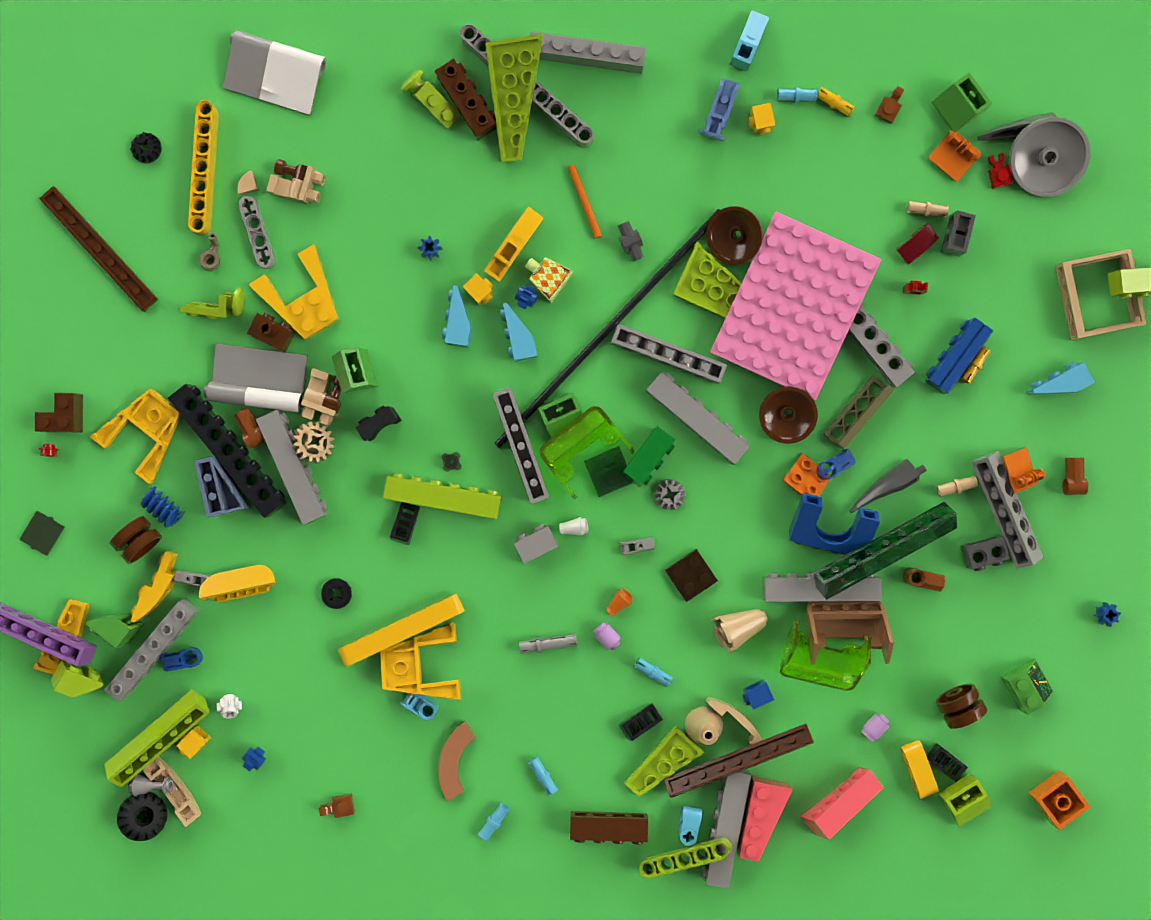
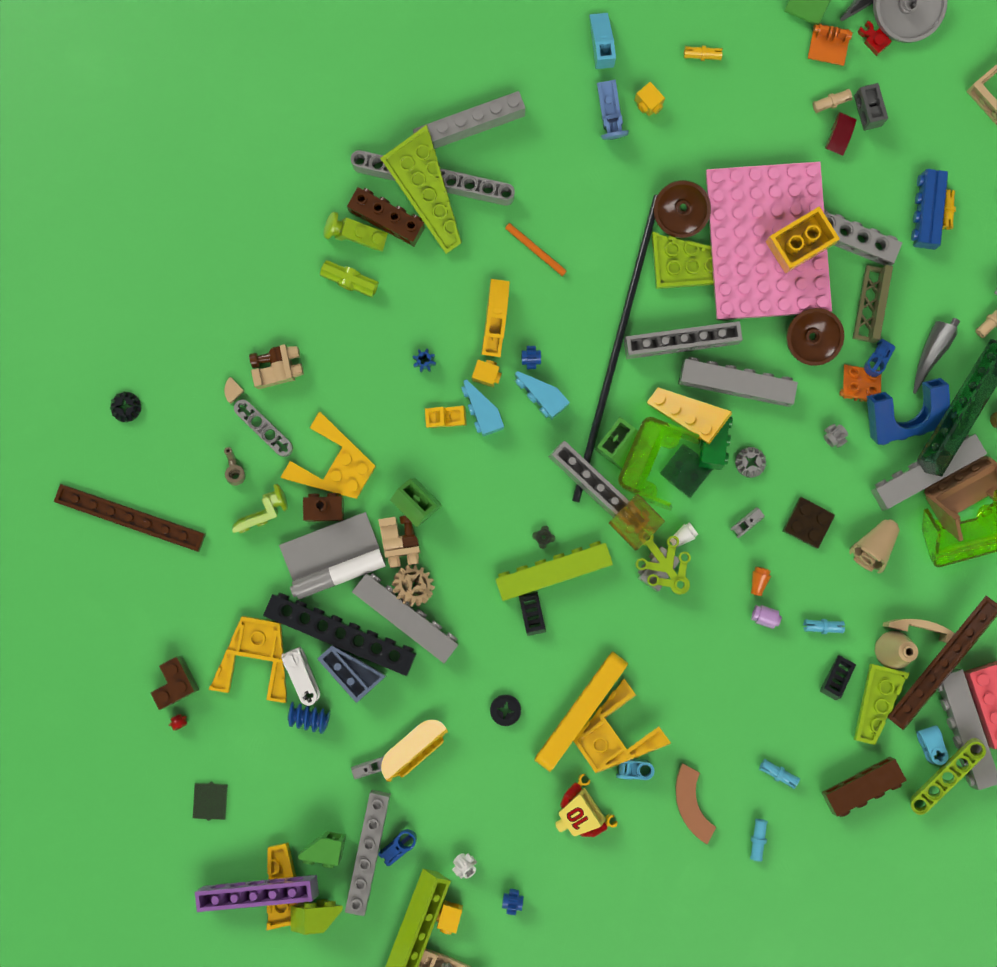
camera: 30 degrees left, 5 degrees down
(135, 540) = (298, 757): reddish brown wheel -> none
(153, 594) = (340, 802): yellow slope -> none
(175, 468) = (301, 675): none -> white piece
(198, 160) = (180, 390): yellow beam -> none
(251, 432) = (353, 606): dark orange piece -> none
(273, 71) = (204, 281): door -> none
(340, 805) = (614, 903): dark orange plate -> none
(352, 717) = (581, 813): none -> torso
(371, 426) = (465, 528): black brick -> none
(403, 138) = (349, 278): none -> lime piece
(422, 309) = (445, 417): none -> yellow slope
(535, 493) = (636, 522): none -> clear yellow slope
(542, 543) = (666, 565): none -> lime plant
(547, 643) = (710, 657): light grey pin -> none
(548, 277) = (541, 330): torso -> none
(630, 241) = (595, 261): dark grey axle -> none
(638, 423) = (690, 413): none -> yellow wing
(757, 512) = (835, 435): none -> light grey gear
(757, 694) = (926, 595): blue brick -> none
(796, 95) = (667, 64): medium azure pin -> none
(822, 322) = (802, 240): none -> yellow brick
(889, 107) = (751, 33): dark orange plate -> none
(915, 287) = (861, 171): red plate -> none

